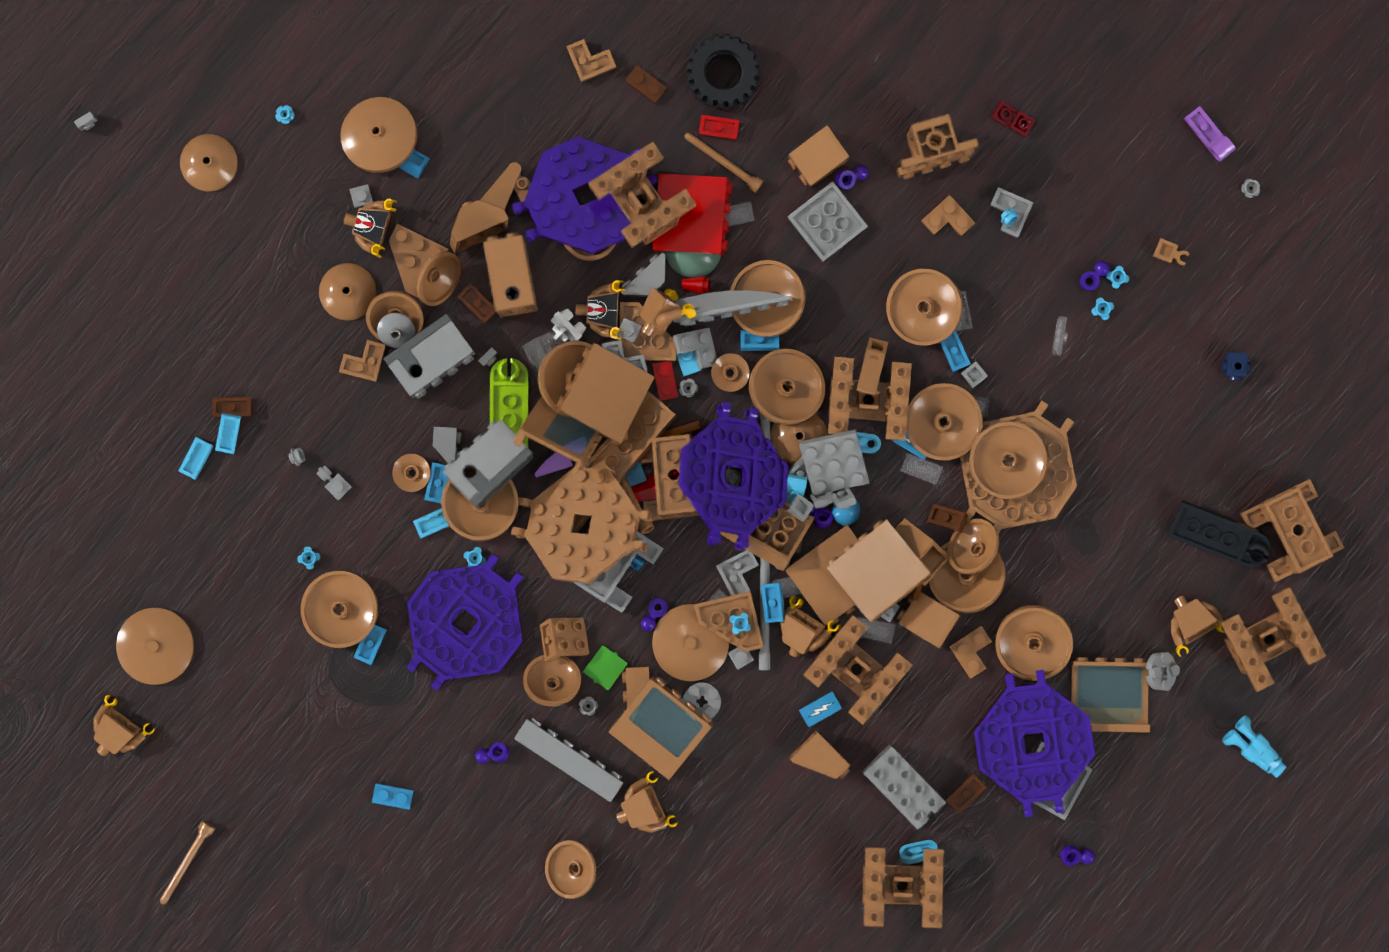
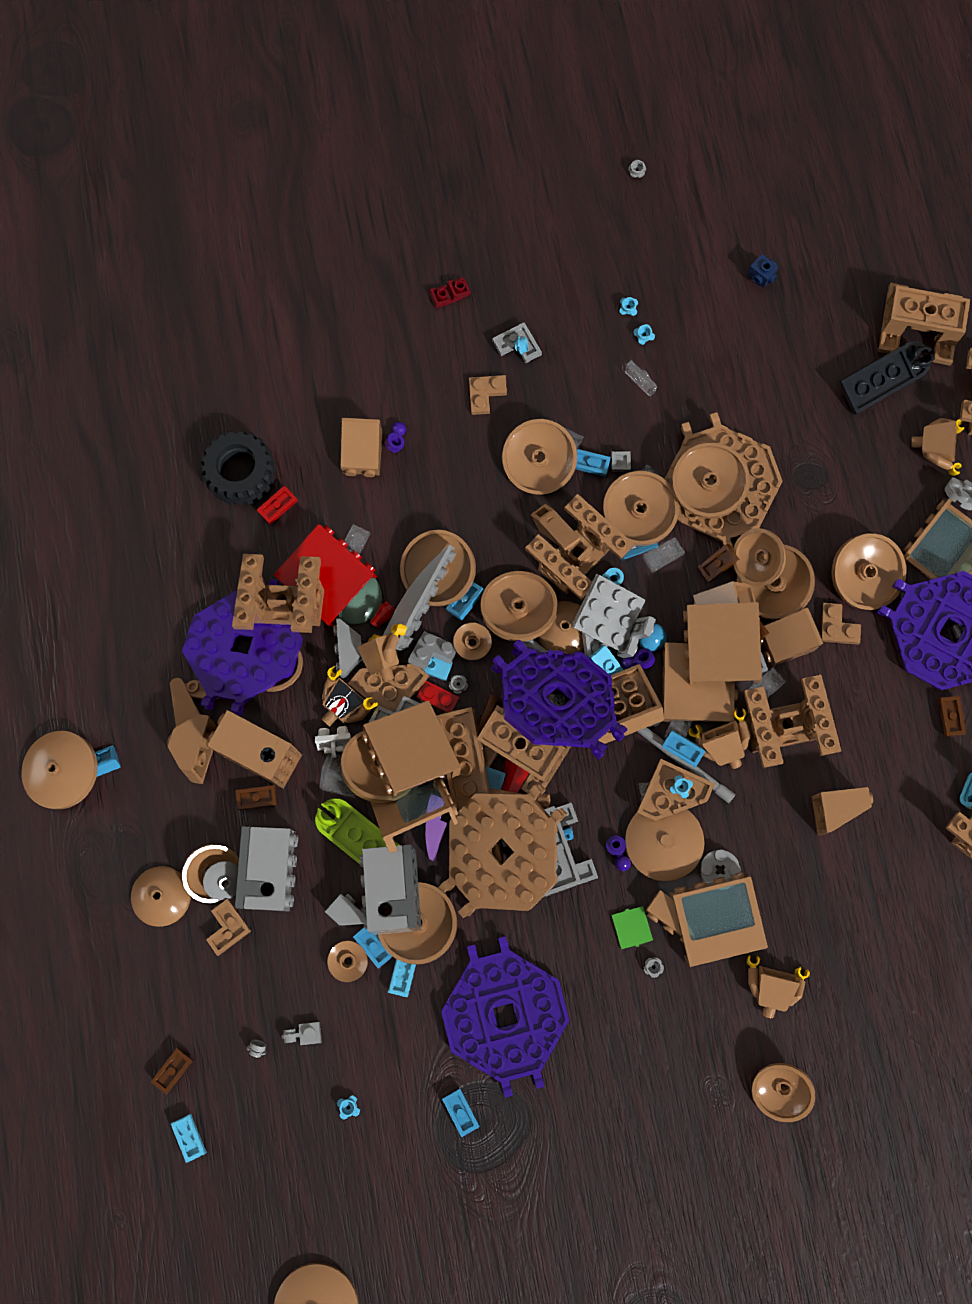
camera: 50 degrees left, 10 degrees down
(228, 433) = (190, 1092): medium azure plate -> none
(339, 609) = (411, 1116): medium nougat dish -> none
(361, 196) = (95, 823): light grey plate -> none
(371, 225) = (123, 832): torso -> none
(392, 796) = (605, 1199): dark azure plate -> none
(411, 254) = (182, 819): medium nougat plate -> none
(438, 278) = (209, 811): medium nougat dish -> none
(476, 552) = (457, 959): medium azure plate -> none
(483, 755) = (629, 1089): dark purple plate -> none
(489, 358) = (307, 822): light grey plate -> none
(542, 674) = (602, 972): medium nougat dish -> none
(564, 638) = (582, 942): medium nougat bracket -> none
(568, 759) = (687, 1019): light grey brick -> none
(587, 65) = (147, 566): medium nougat plate -> none
(630, 330) = (376, 691): light grey plate -> none
(645, 84) = (198, 535): reddish brown plate -> none
(732, 571) = (631, 760): light grey plate -> none
(740, 657) = (707, 810): light grey plate -> none
(753, 182) = (340, 512): medium nougat piece -> none
(800, 507) = (624, 667): light grey plate -> none
(820, 709) = (798, 779): dark azure slope -> none
(827, 221) = (415, 480): light grey plate -> none
(903, 786) = (914, 759): light grey piece -> none
(934, 145) = (423, 360): medium nougat piece -> none
(1101, 269) = (613, 313): dark purple plate -> none
(1167, 252) = (639, 258): medium nougat plate -> none
(1209, 134) = (575, 167): medium lavender plate -> none

